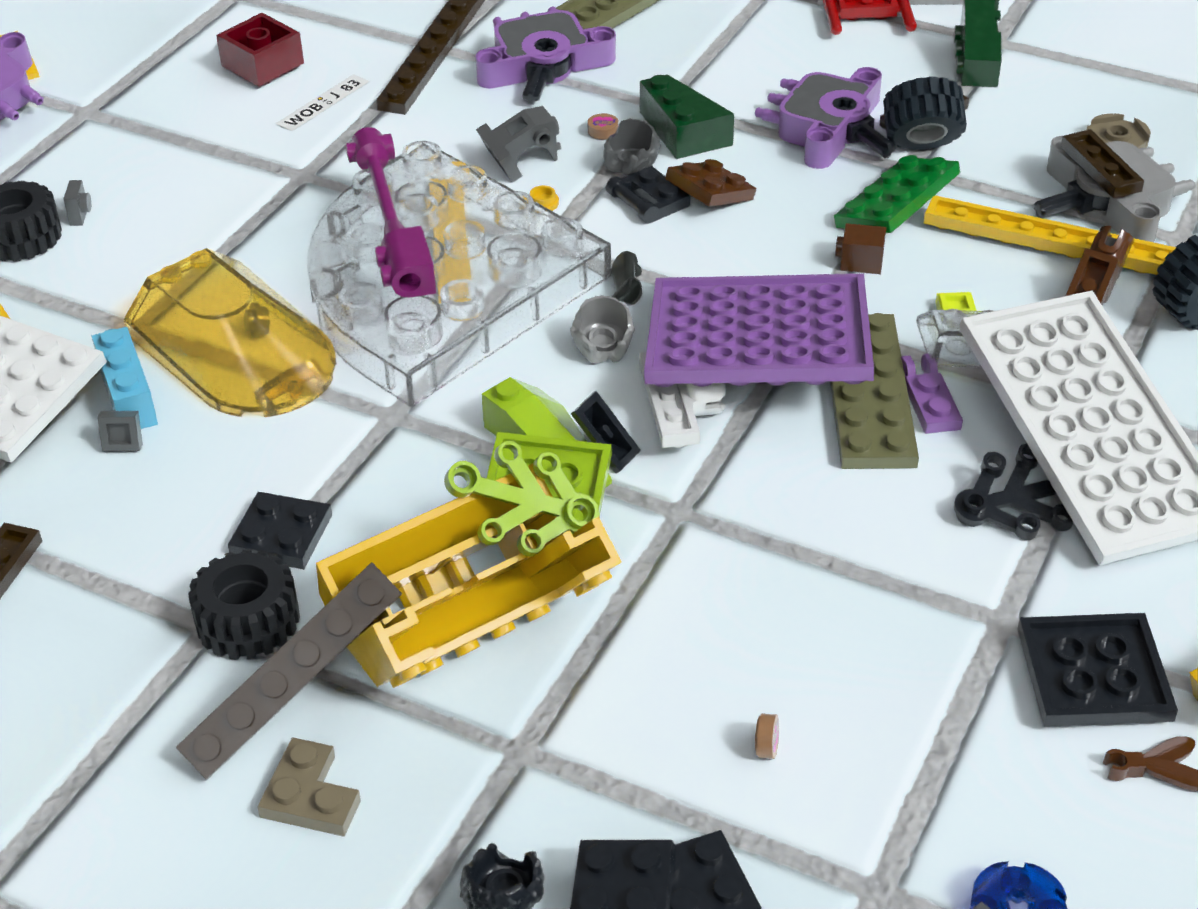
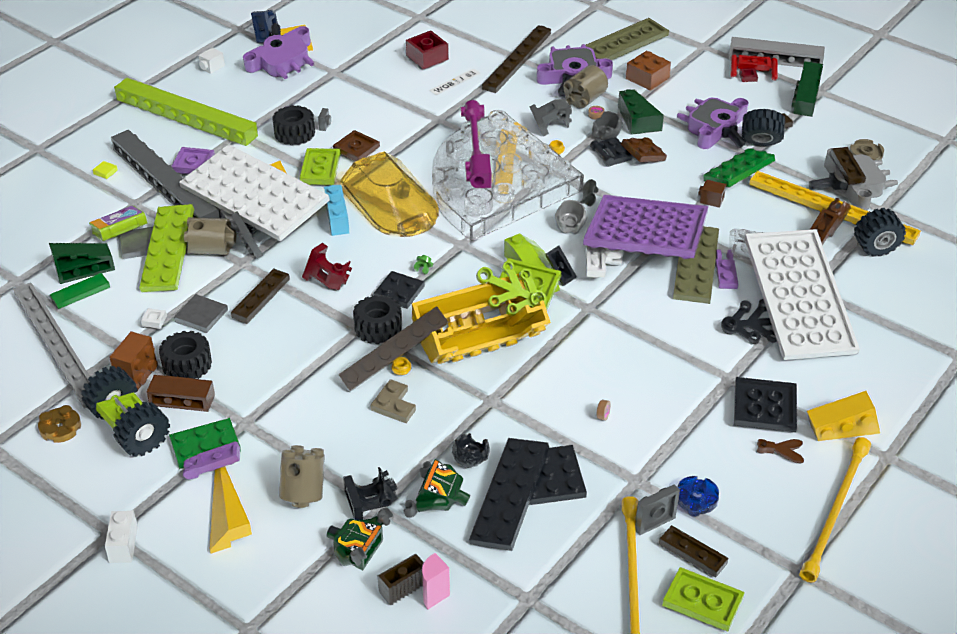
camera: 10 degrees right, 0 degrees up
(79, 295) = (320, 166): none -> lime plate
(99, 497) = (336, 272): none -> dark red tile
(120, 430) = (331, 233): dark grey plate -> none
(148, 245) = (356, 145): none -> reddish brown plate
(312, 703) = (401, 366): none -> yellow plate
(322, 462) = (424, 261): none -> bright green plate
(575, 79) = (585, 86): none -> dark tan cylinder
(681, 39) = (648, 70): none -> dark orange brick
(862, 28) = (748, 75): none -> dark red tile
(955, 300) = (753, 226): neon yellow tile -> none

